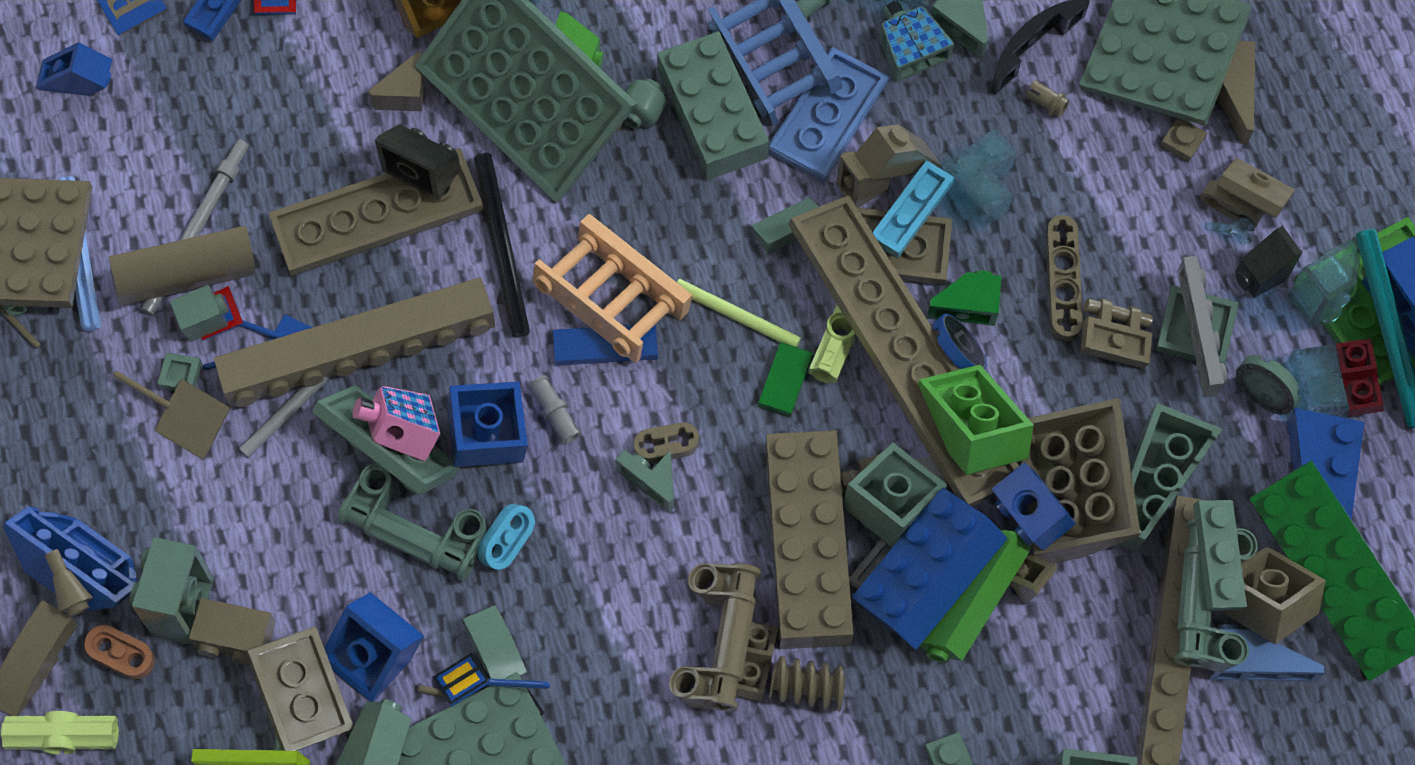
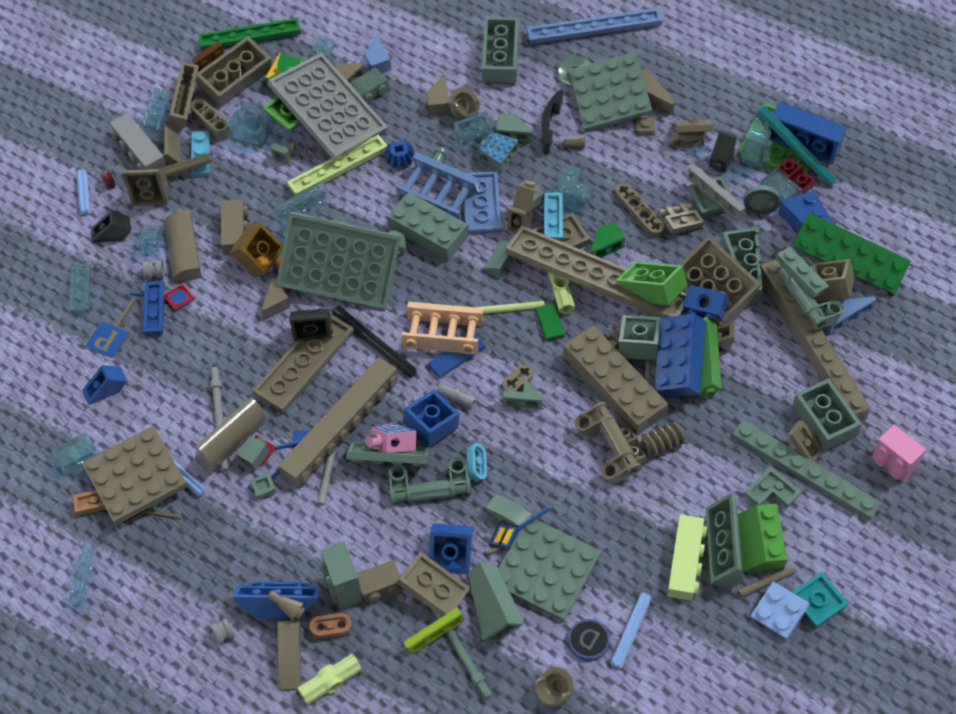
camera: 30 degrees left, 10 degrees down
(189, 417) = (283, 502): dark tan piece -> none
(958, 342) = (616, 259): tile -> none

